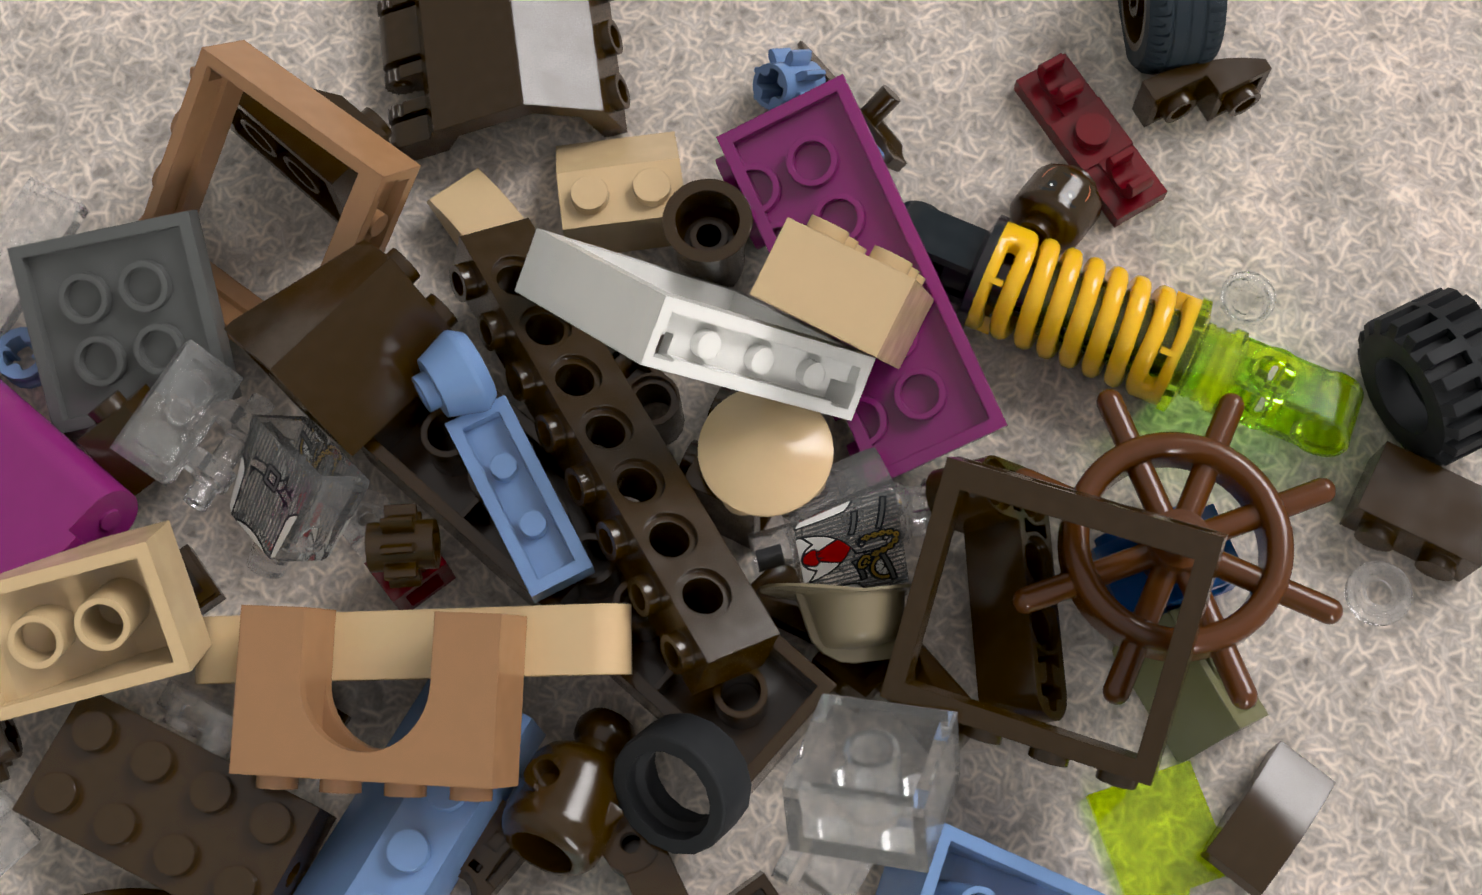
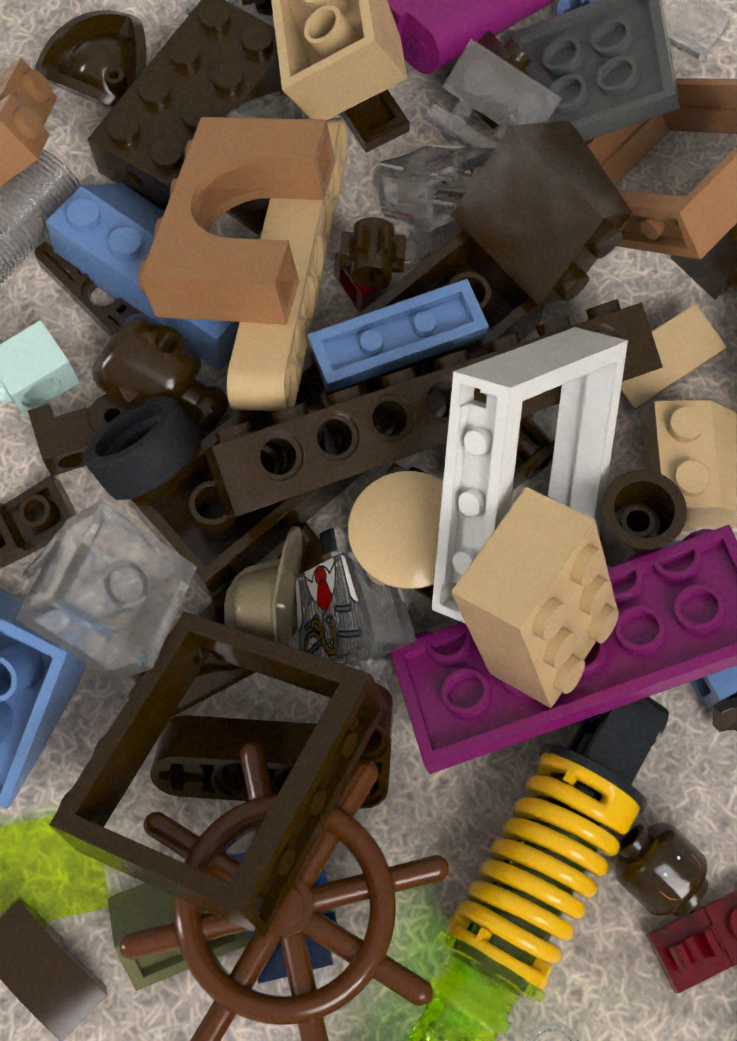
camera: 95 degrees right, 0 degrees up
(454, 377) = (506, 285): medium blue cone -> none

